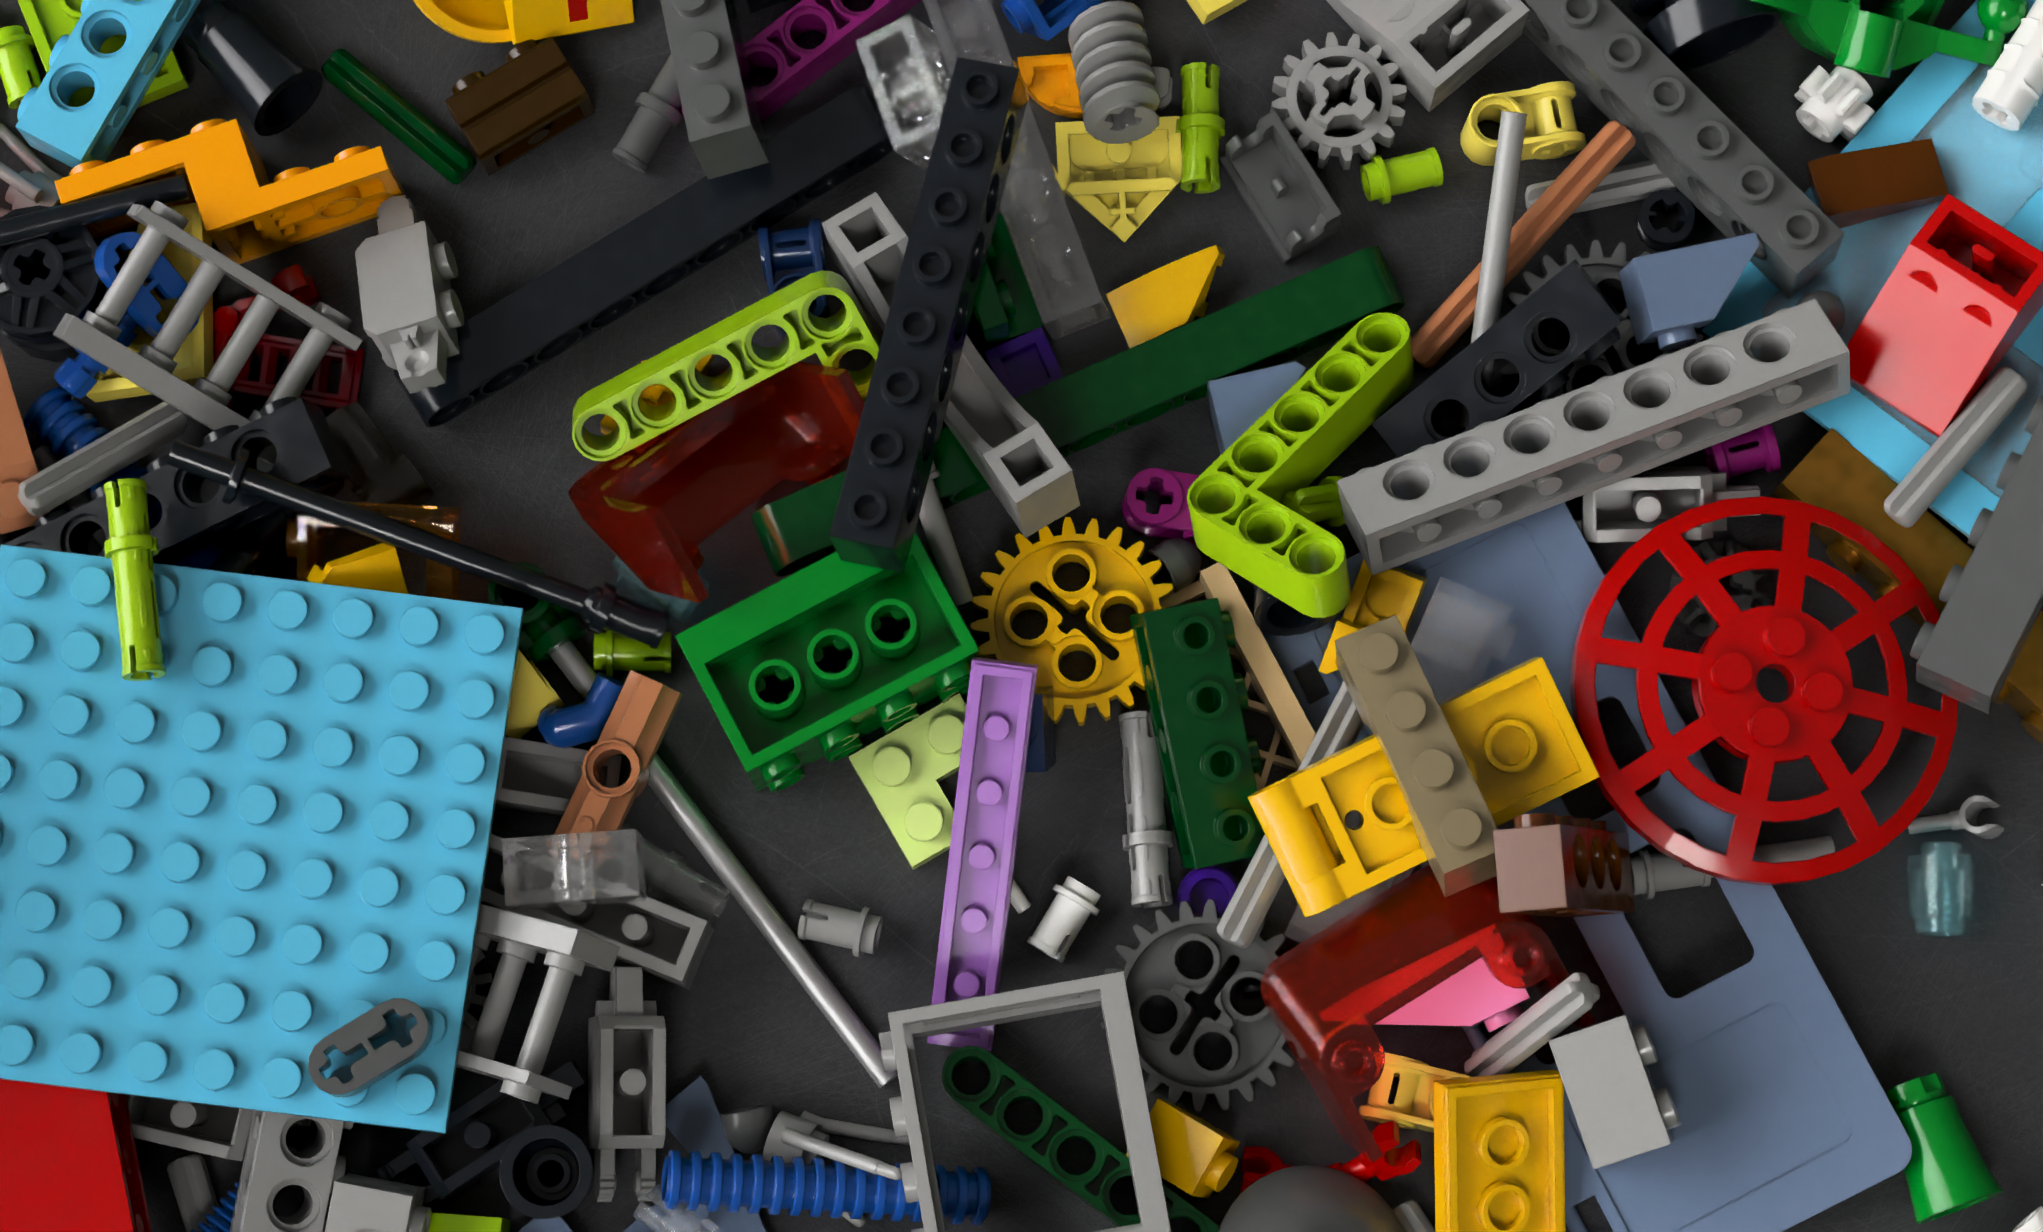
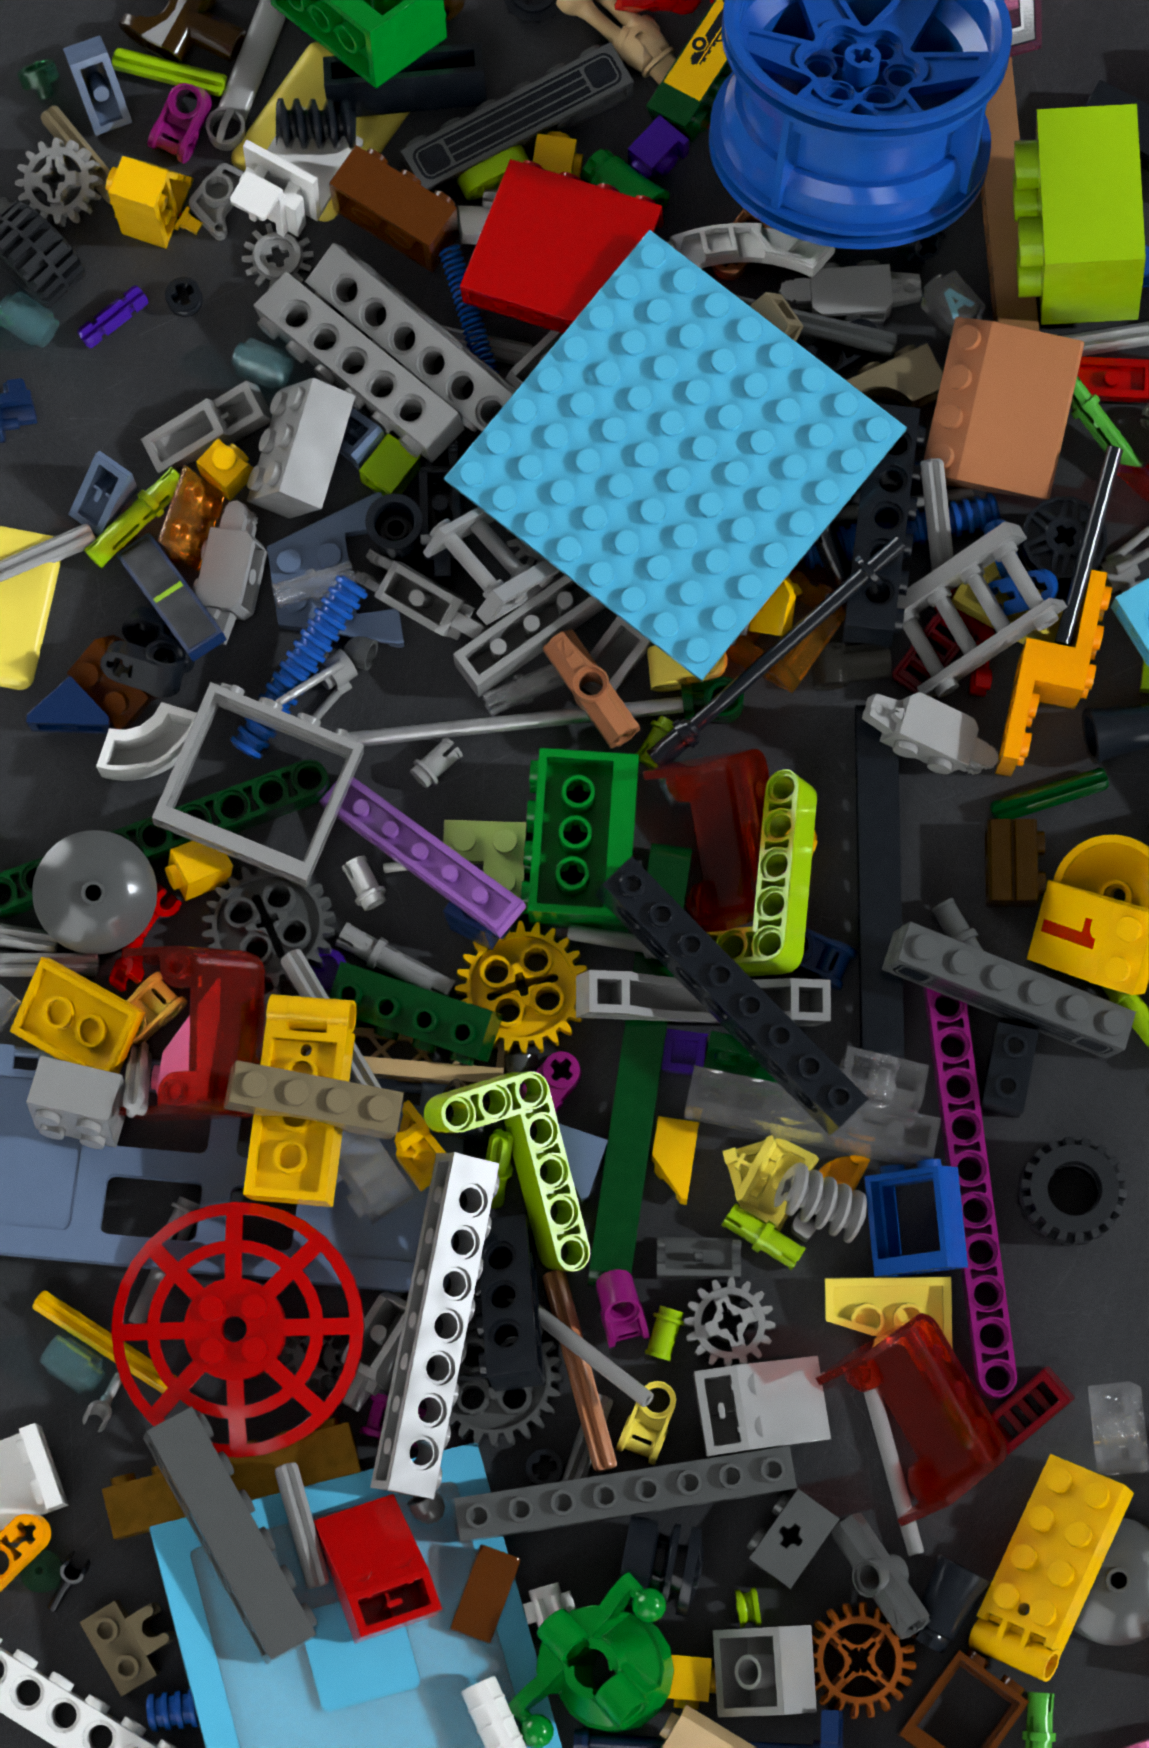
camera: 120 degrees right, 0 degrees up
(132, 556) = (847, 485): lime pin -> none
(361, 1034) = (499, 461): dark grey beam -> none
(574, 869) = (542, 625): clear brick -> none
(582, 721) = (631, 688): blue arm -> none
(1411, 238) = (620, 1307): none -> magenta piece
(1562, 867) = (202, 1137): reddish brown brick -> none
(1682, 289) = (488, 1435): sand blue slope -> none
(1884, 889) = (96, 1337): none -> yellow axle

